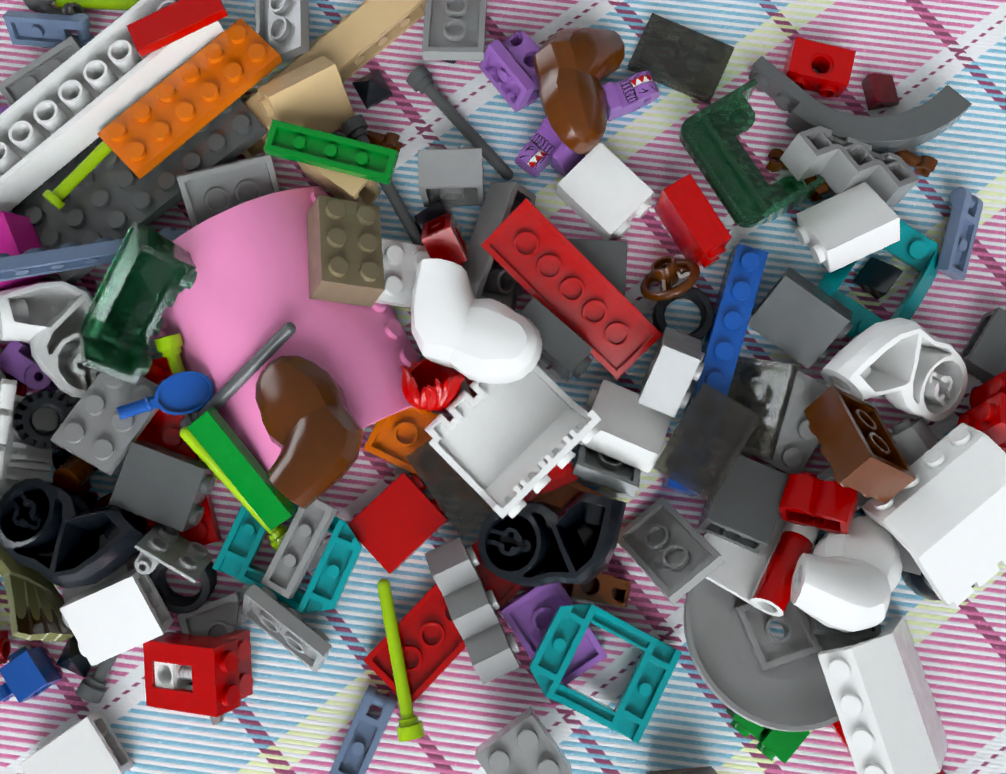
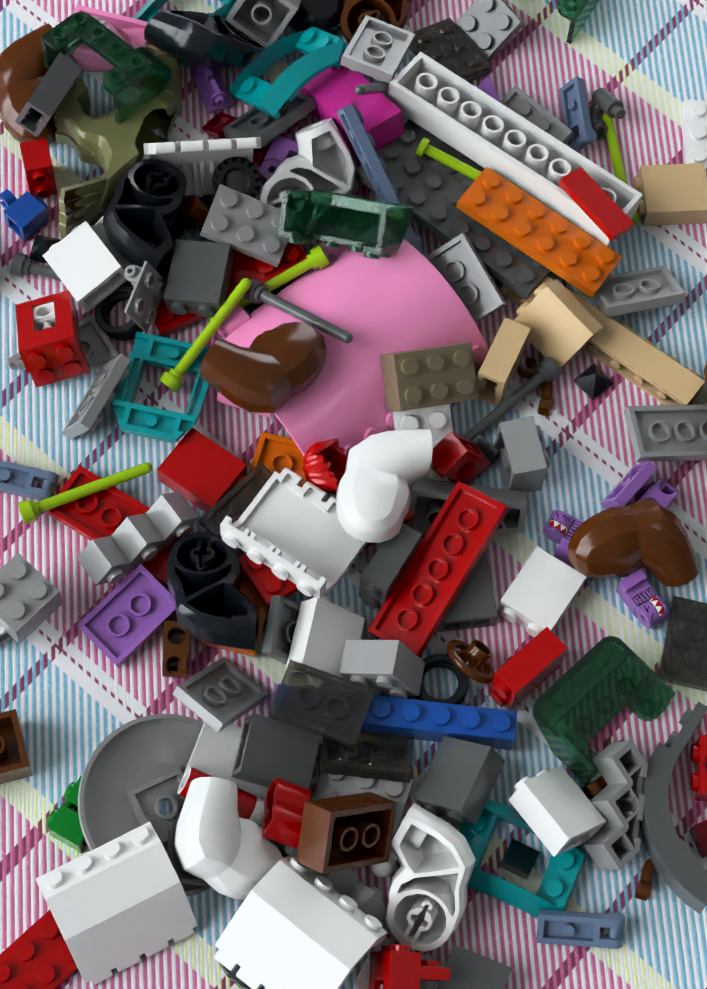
camera: 70 degrees right, 15 degrees down
(175, 395) = (275, 269): blue piece -> none
(241, 468) = (227, 327): green tile -> none
(298, 548) = (168, 391): light grey plate -> none
(331, 152) = (511, 345): green plate -> none
(421, 80) = (609, 419): dark grey piece -> none
(642, 689) = (91, 698): teal wedge -> none

